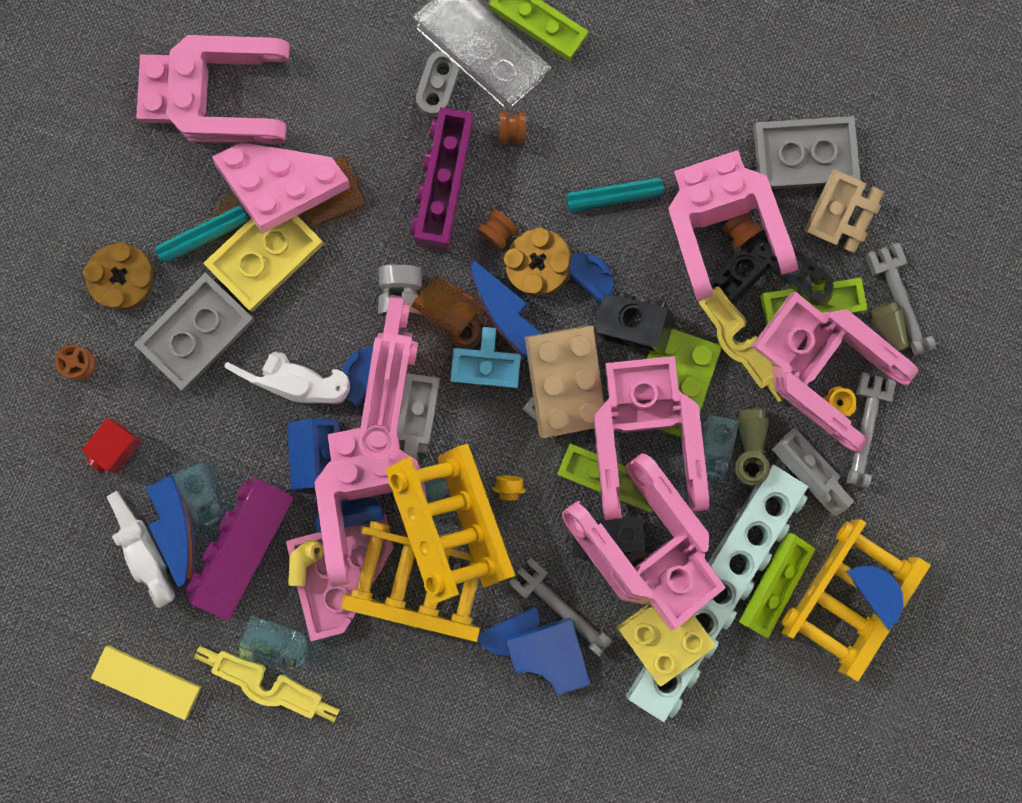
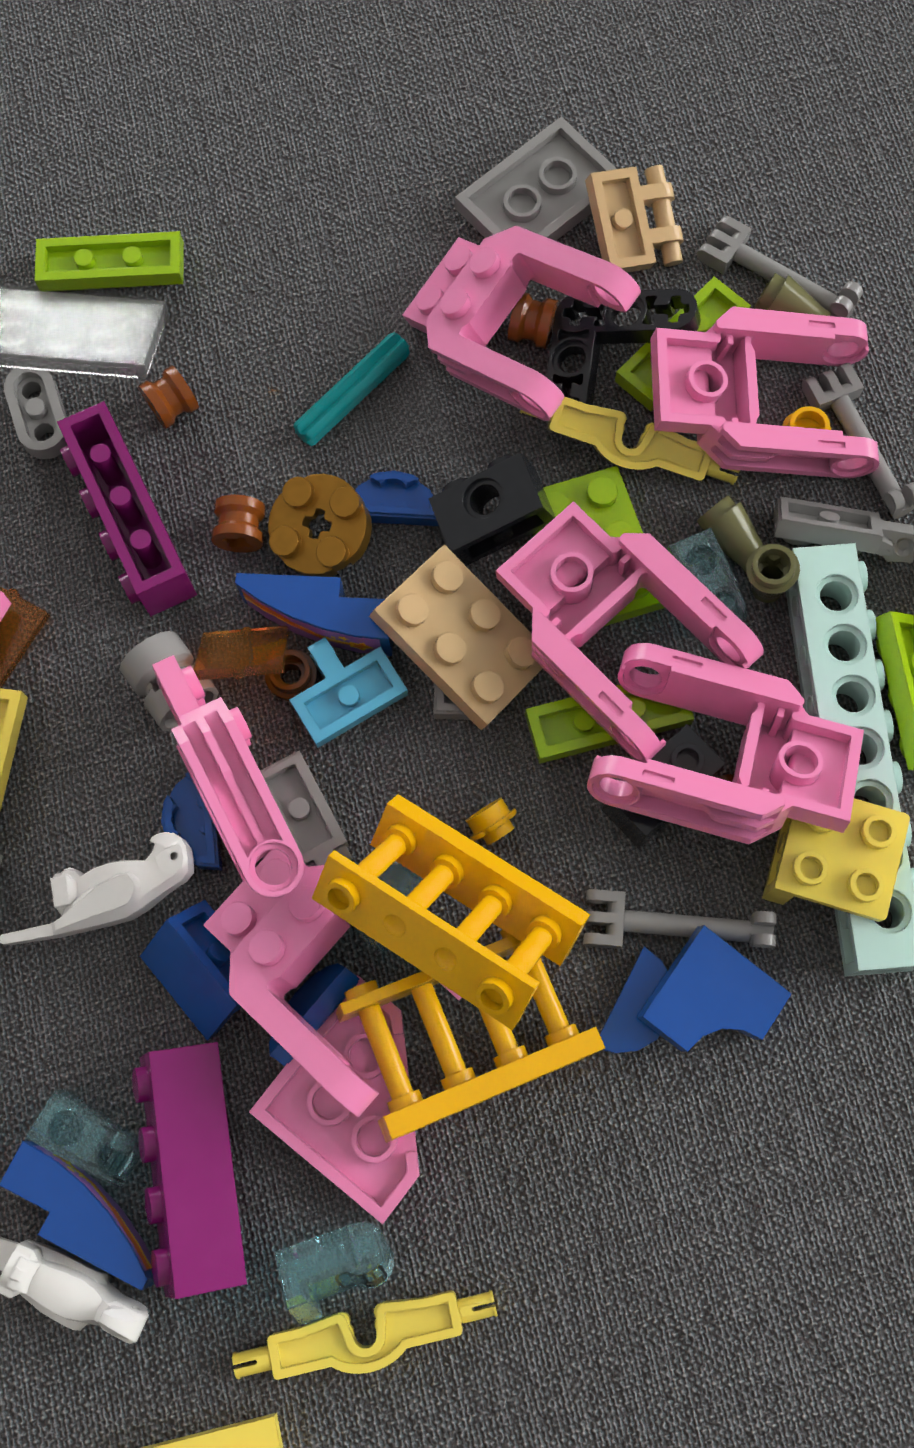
camera: 30 degrees left, 10 degrees down
(301, 559) = (288, 1118): light yellow arm -> none

